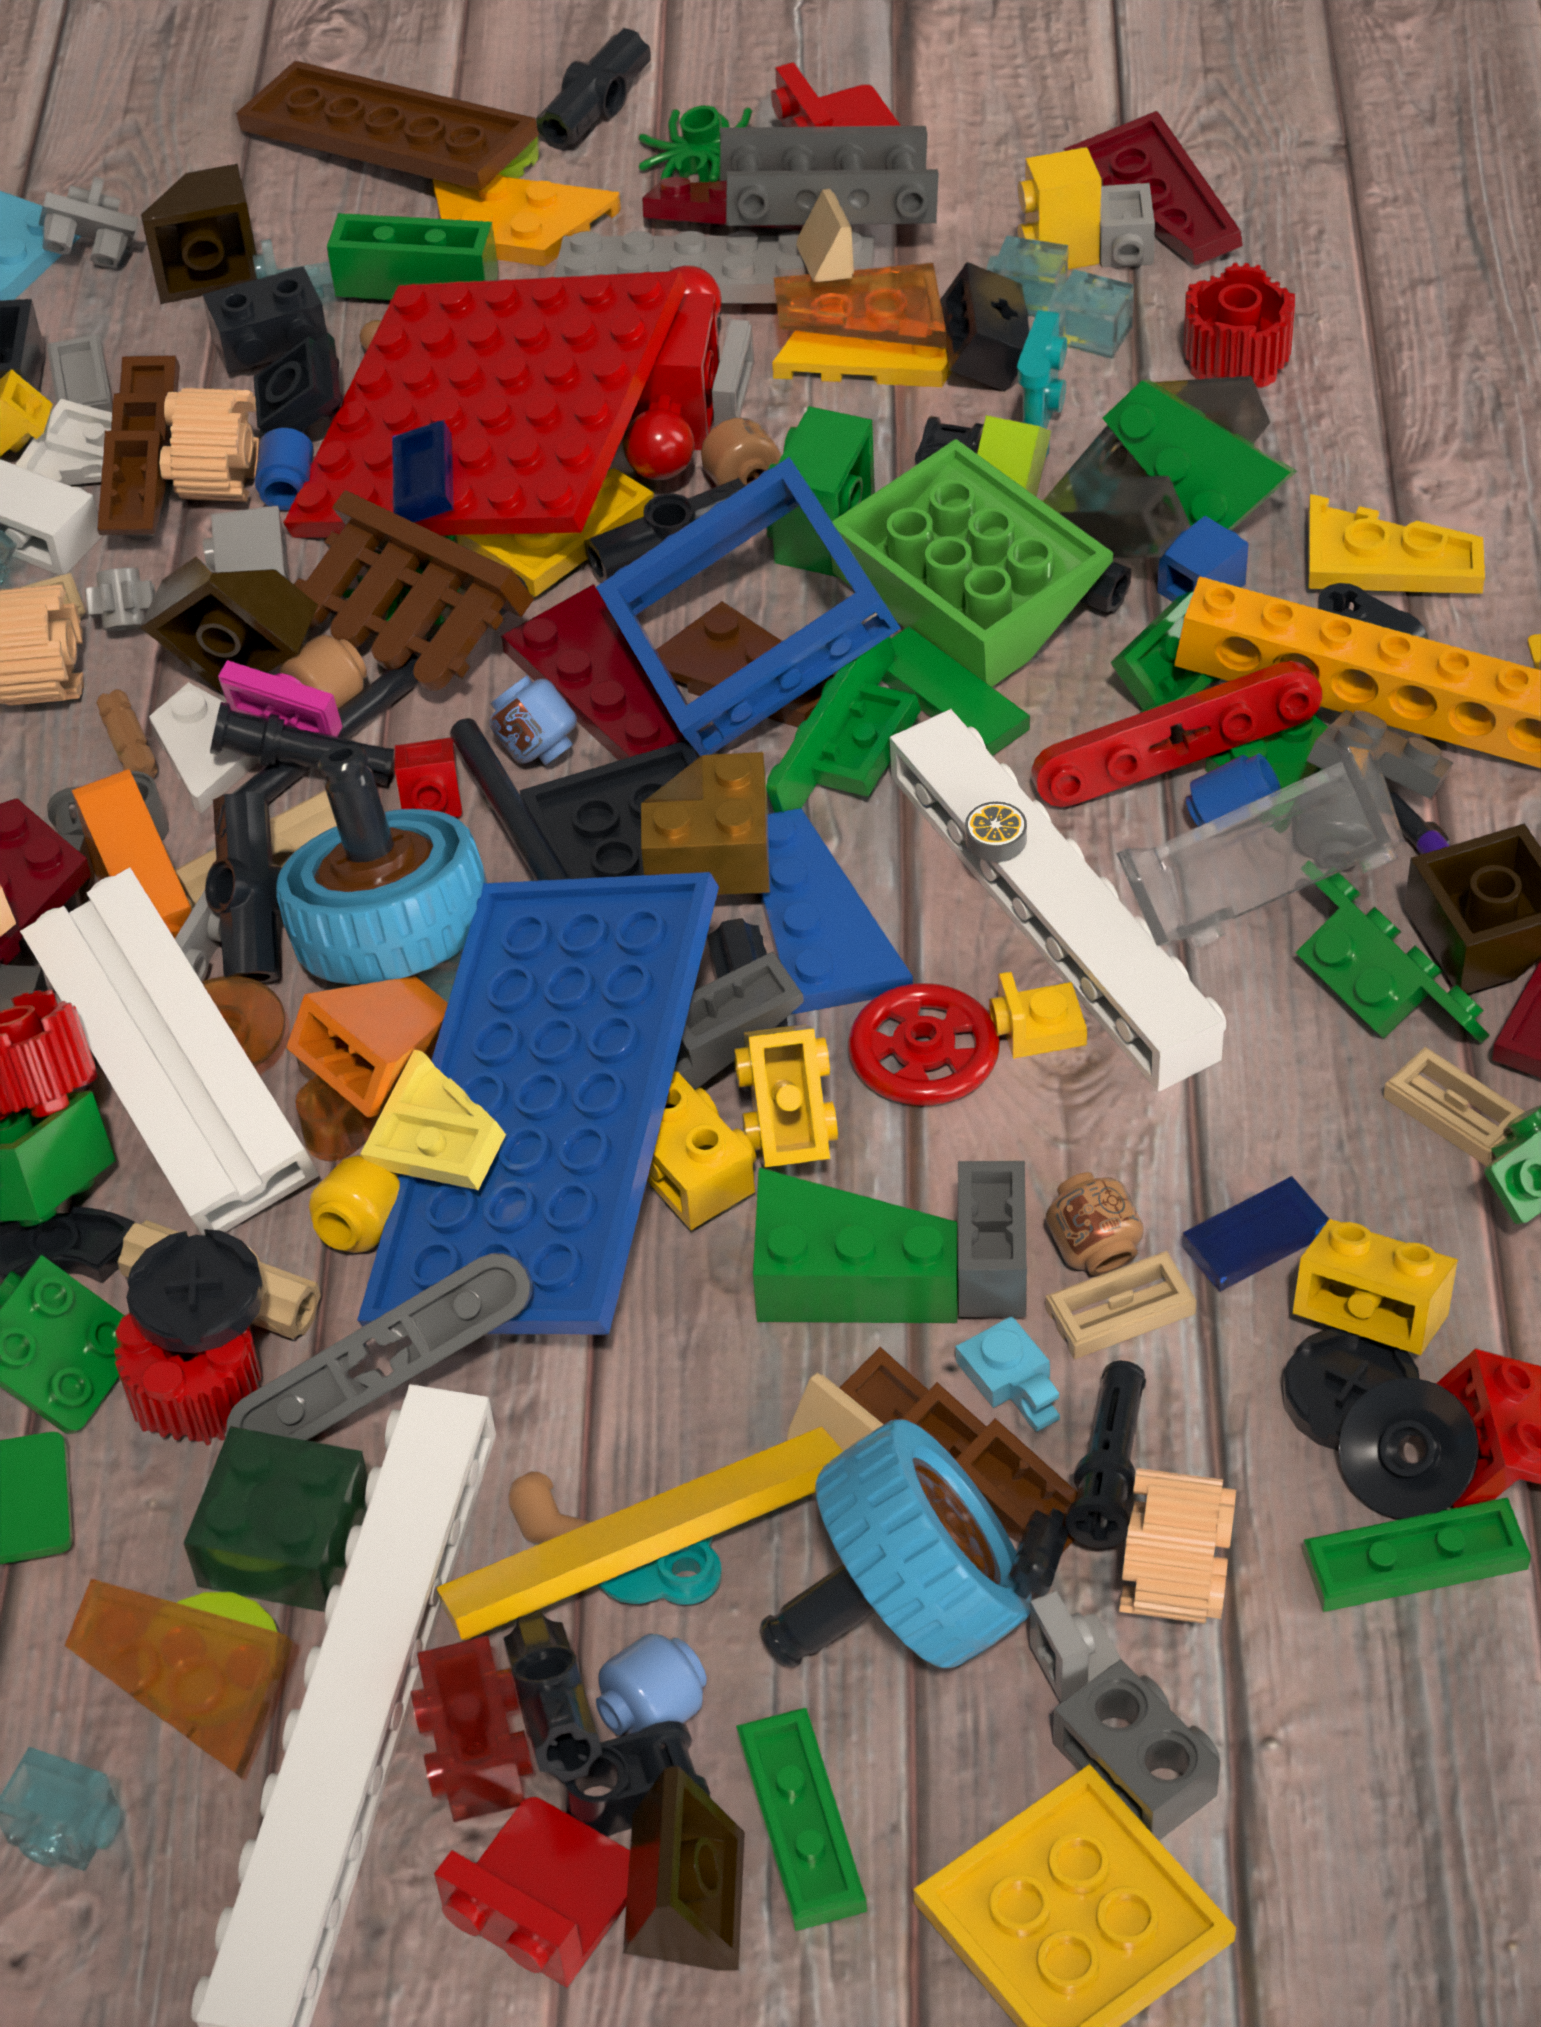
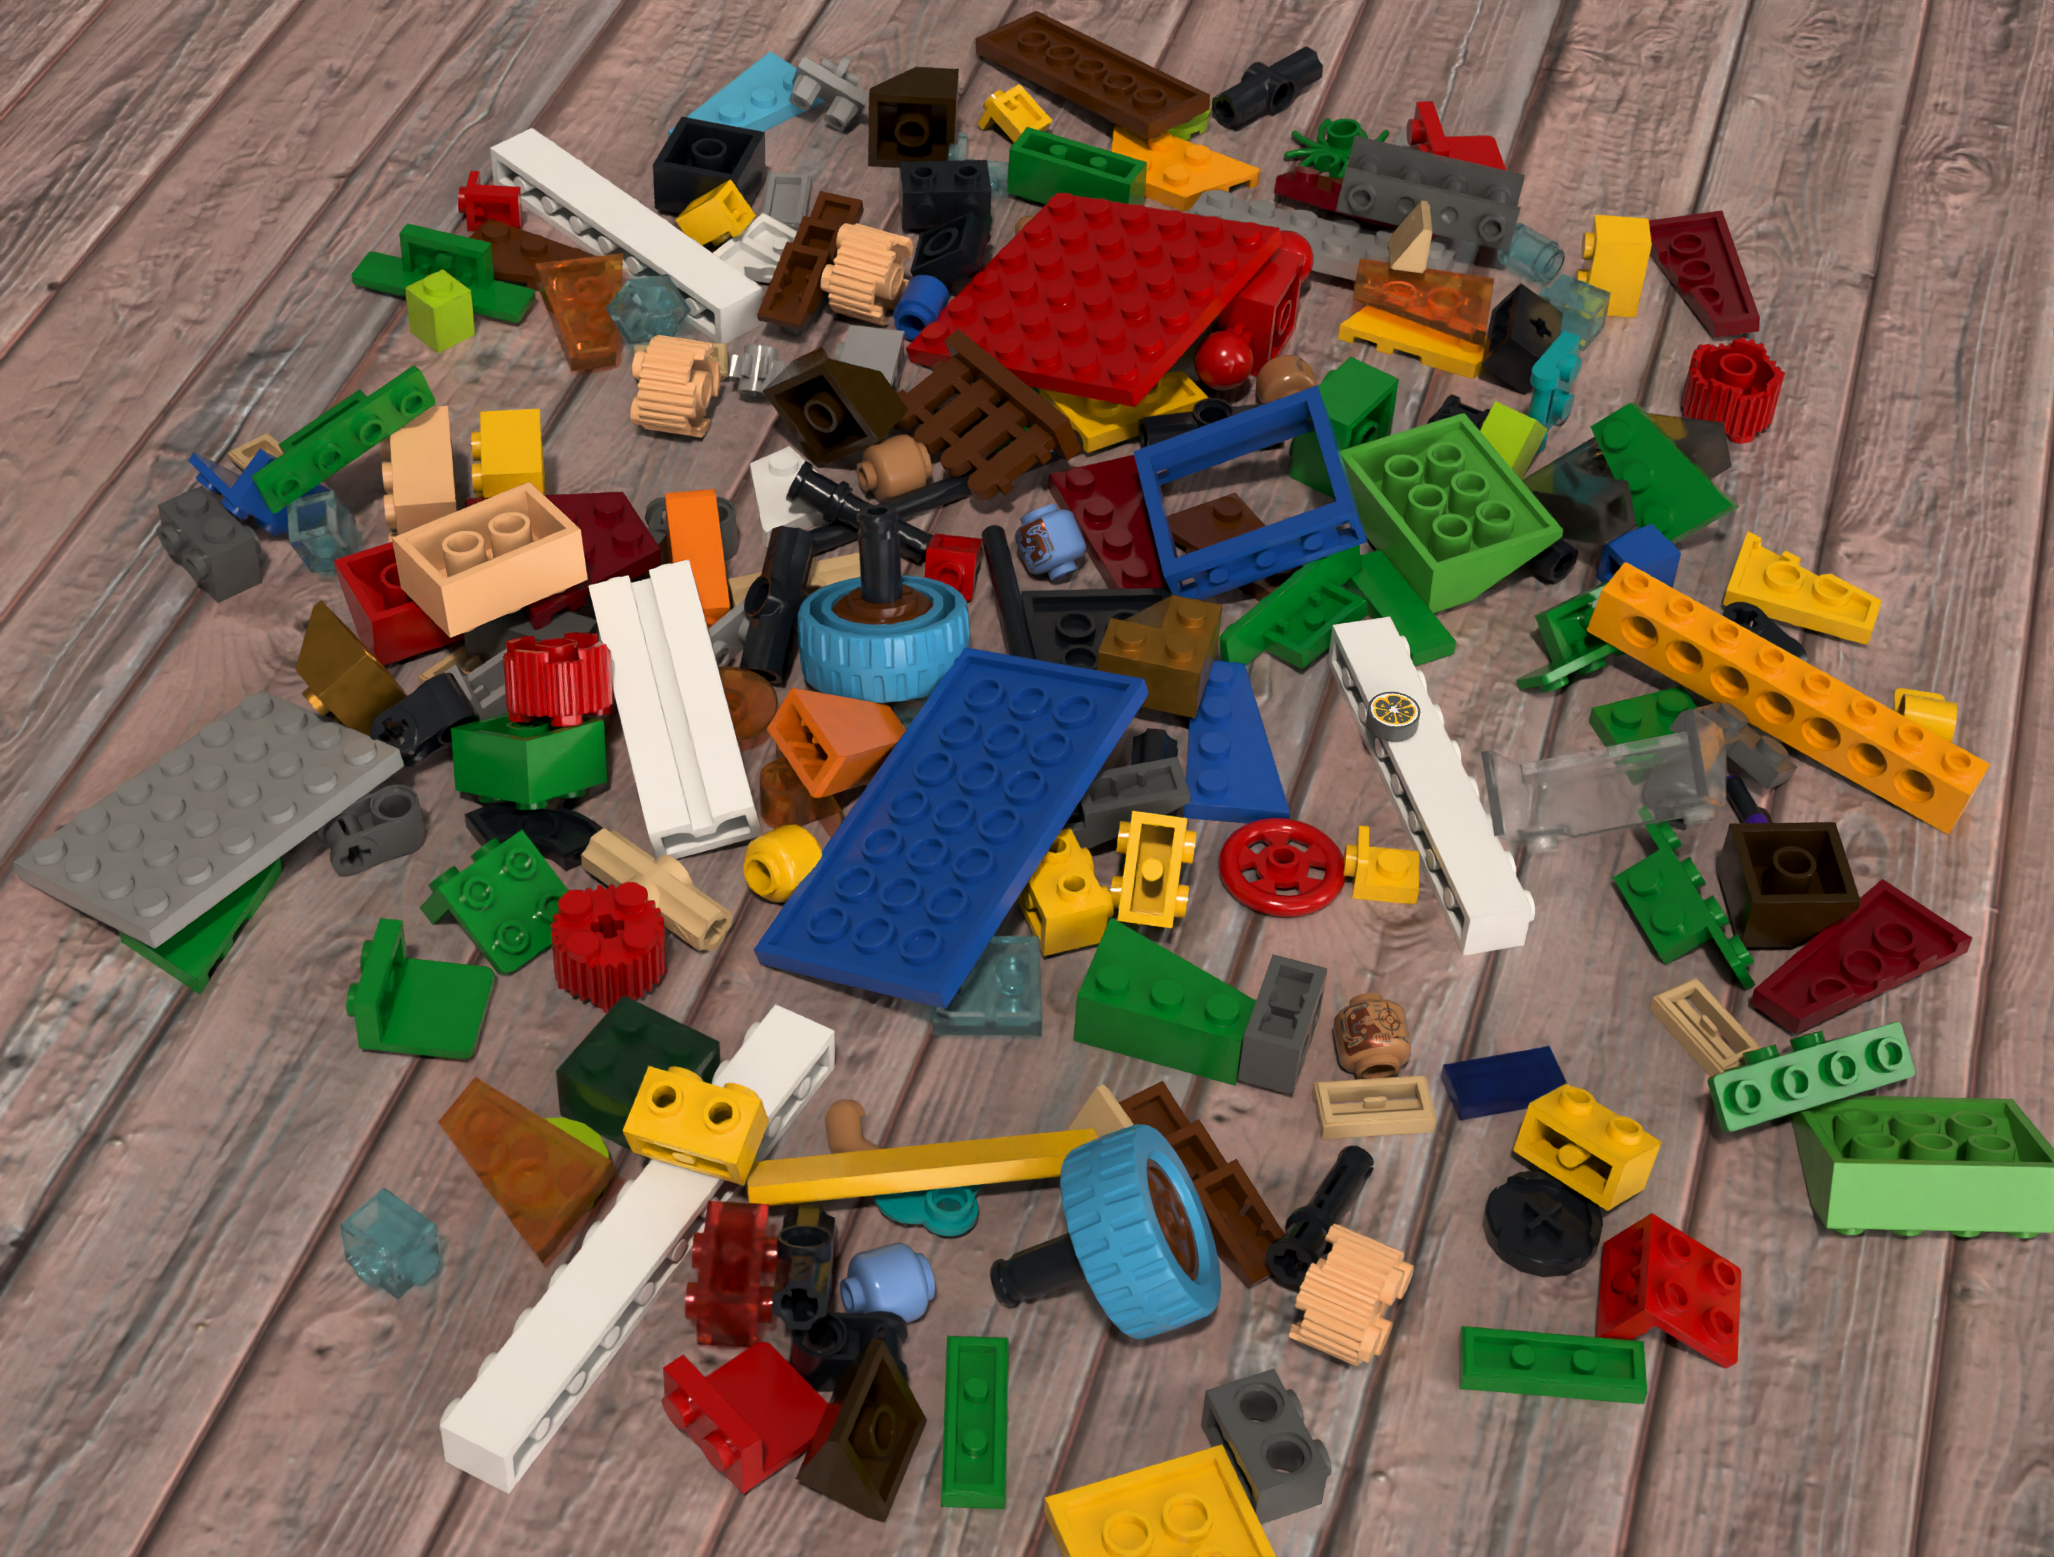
camera: 10 degrees right, 5 degrees down
(126, 733) = (728, 471): medium nougat axle -> none
(194, 1291) = (630, 886): black tile -> none
(279, 694) = (843, 464): dark pink plate -> none
(313, 196) = (1014, 112): none -> yellow bracket
(374, 1564) = (696, 1124): none -> yellow brick
(423, 472) = (1025, 331): clear blue tile -> none
(433, 1129) = (860, 818): light yellow wing -> none
(438, 1324) = (813, 964): dark grey piece -> none
(660, 1292) = (998, 993): none -> clear light blue wing
(733, 372) = (1305, 322): light grey tile -> none
(963, 219) = (1533, 254): none -> clear light blue brick
(1011, 1366) = (1266, 1128): medium azure plate -> none
(1039, 1553) = (1235, 1269): black axle -> none
(1068, 1646) = (1235, 1346): light grey bracket -> none
(1093, 312) = (1615, 351): clear light blue brick -> none
(1121, 752) = (1622, 680): red piece -> none
(1127, 225) = (1665, 291): light grey bracket -> none
(1230, 787) = (1600, 732): blue brick -> none
(1375, 1442) = (1552, 1260): black dish -> none

